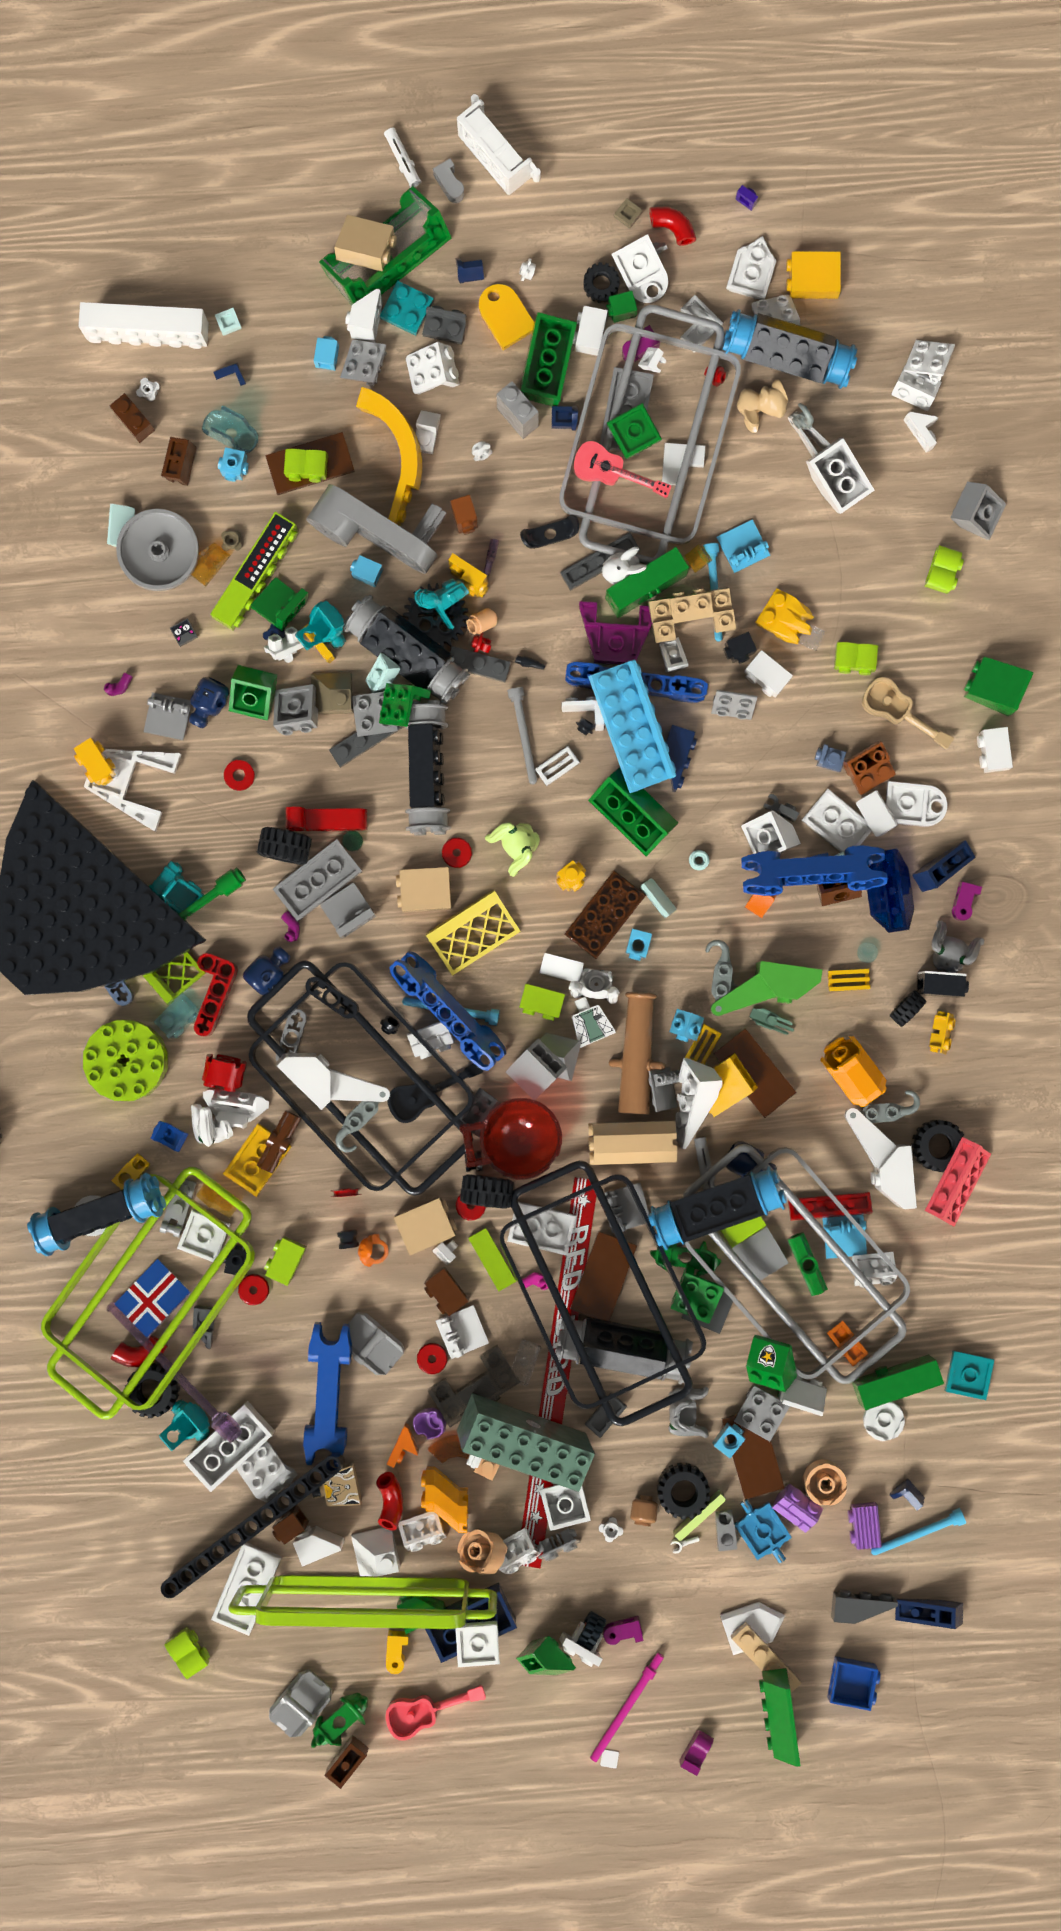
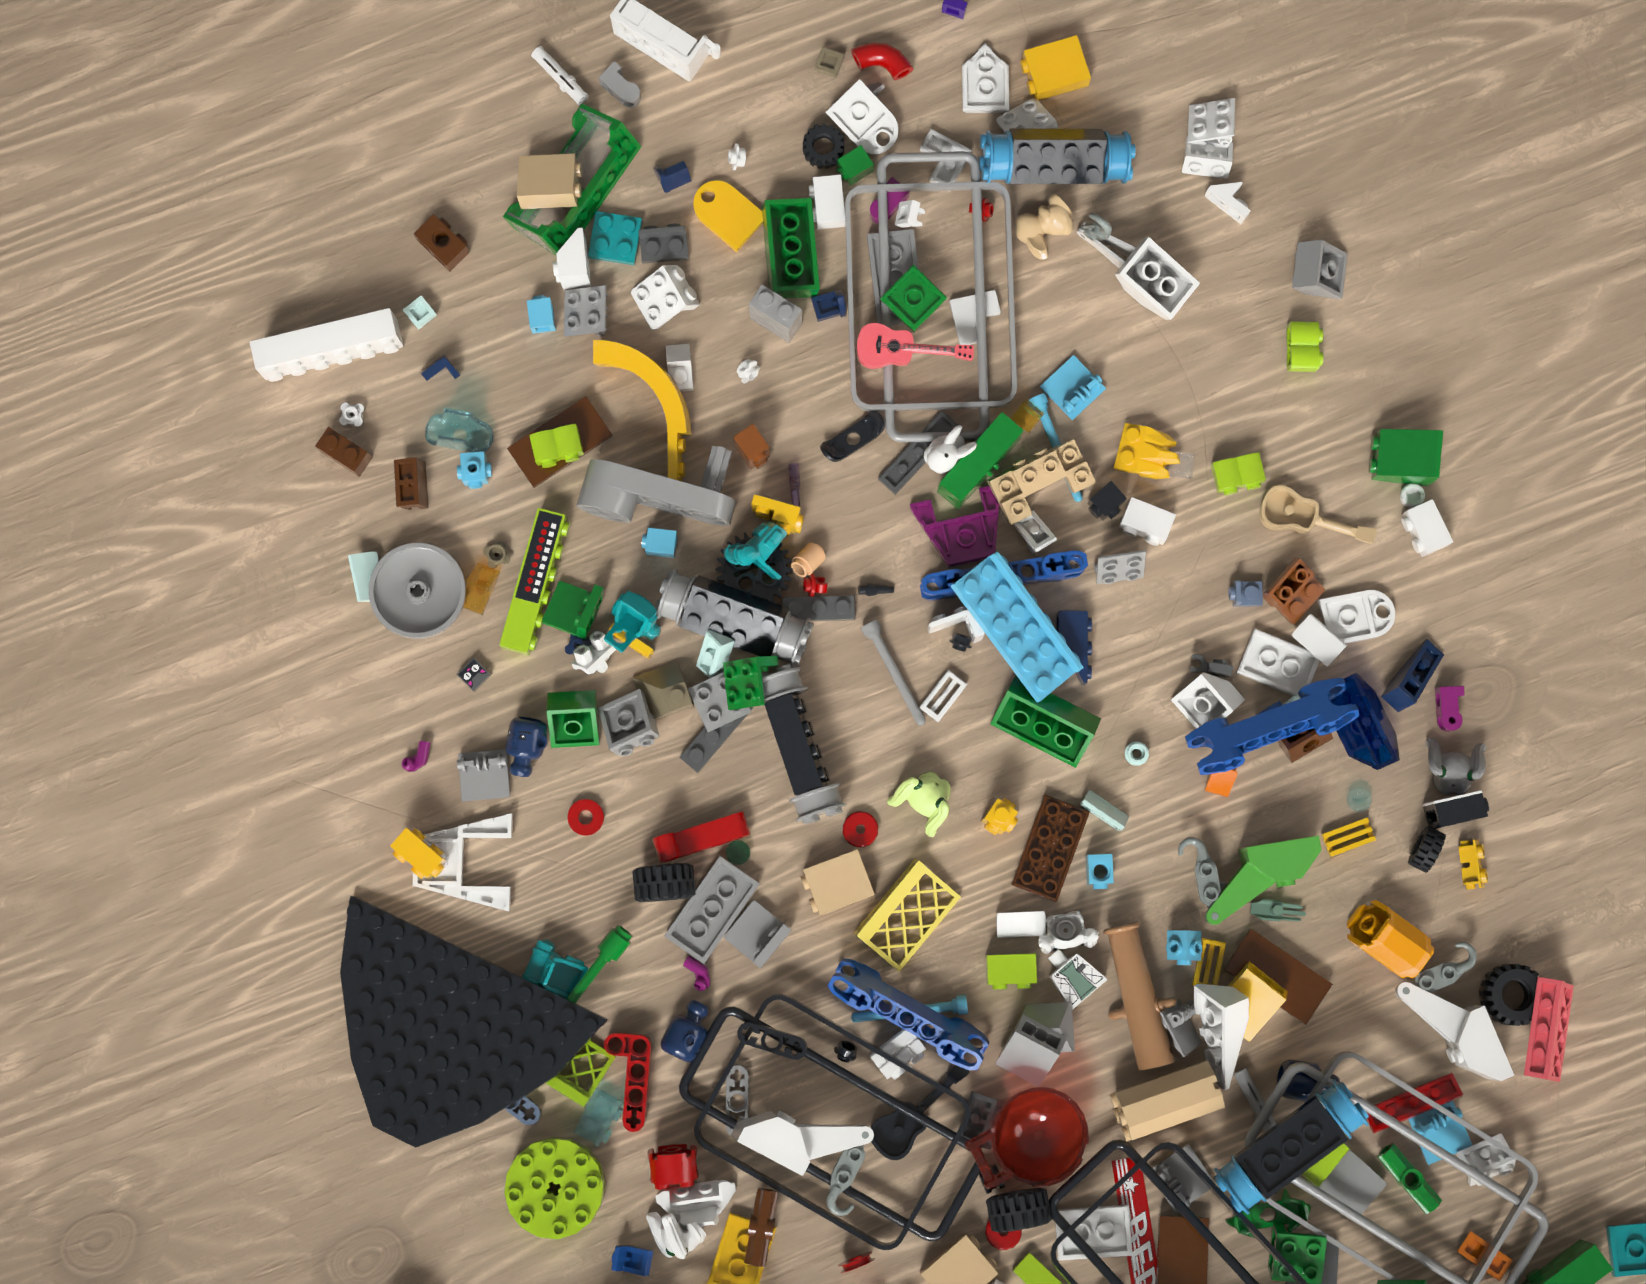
camera: 20 degrees left, 5 degrees down
(258, 257) = (449, 254): none -> reddish brown brick
(992, 719) = (1412, 495): none -> white tile

